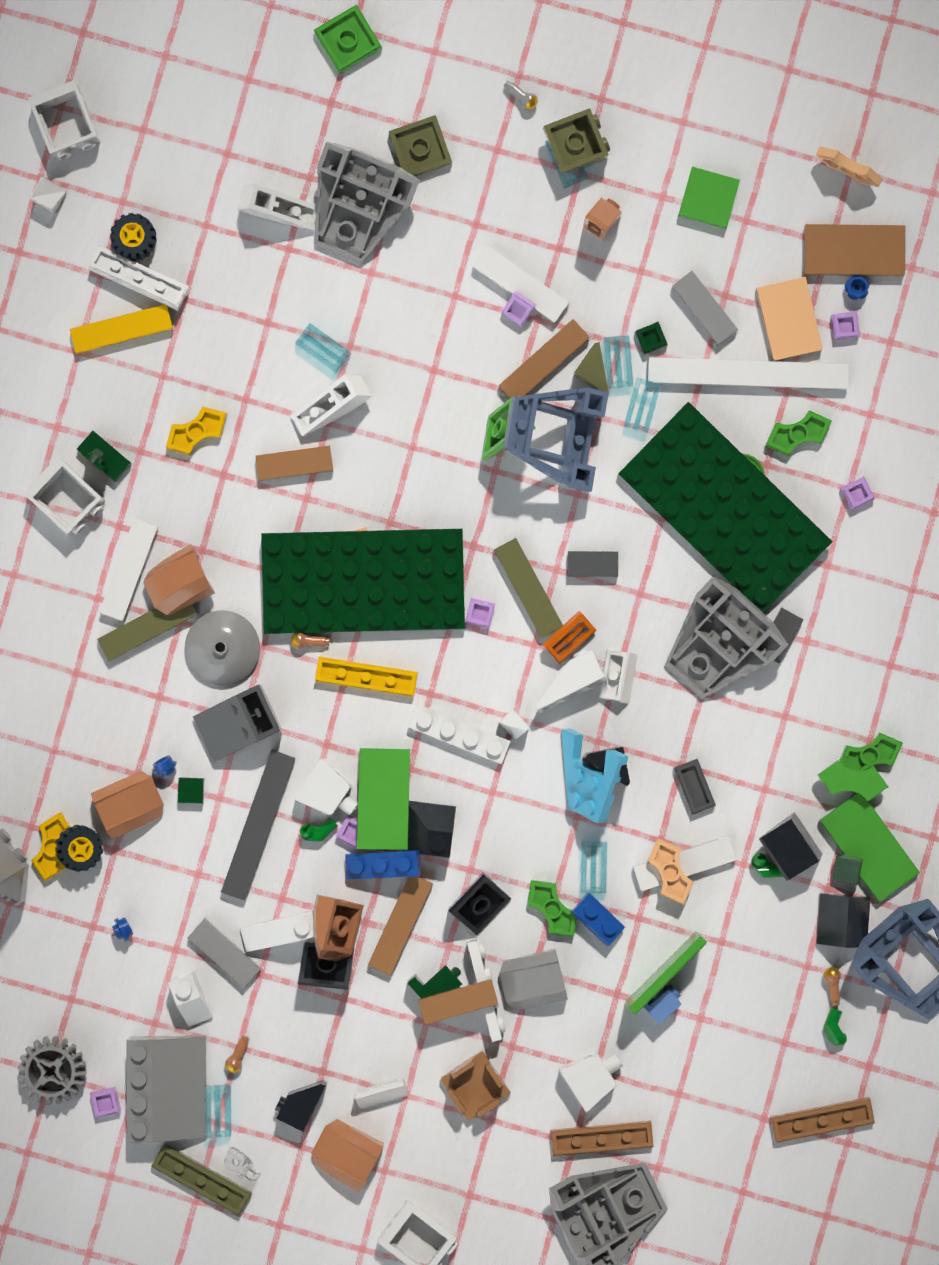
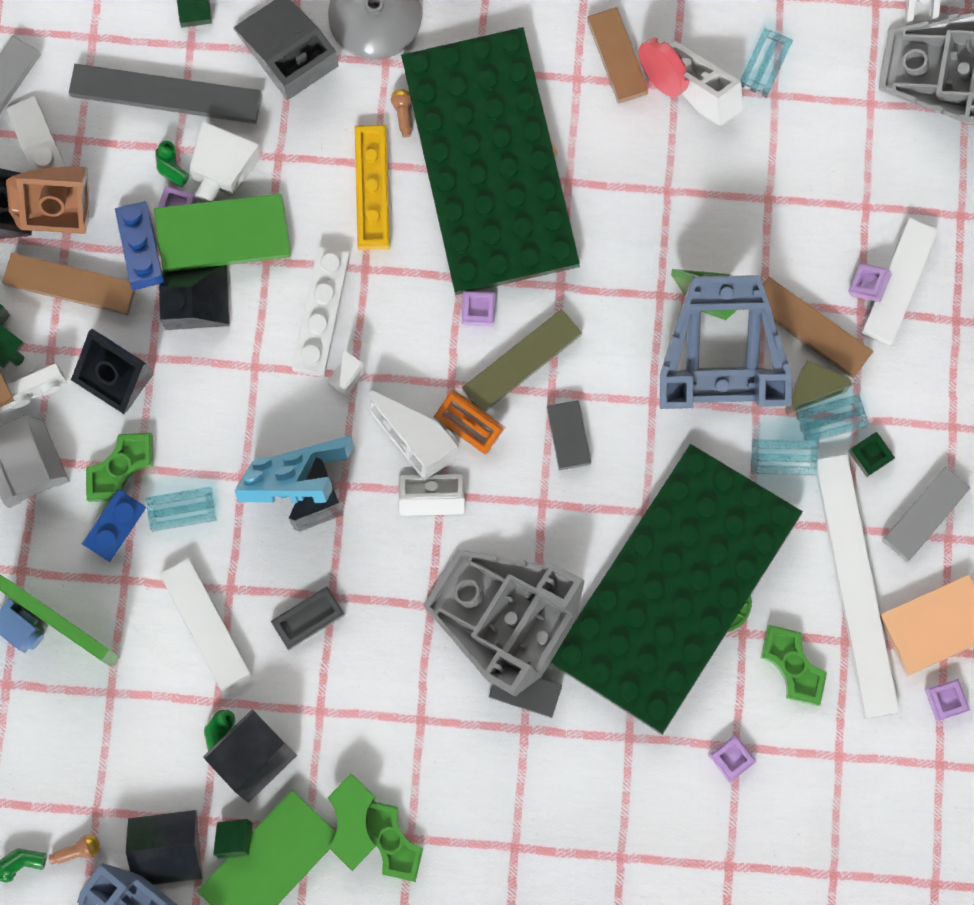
camera: 75 degrees right, 10 degrees down
(317, 430) = (663, 67): none -> coral tile
(666, 860) = (205, 596): light nougat tile -> none

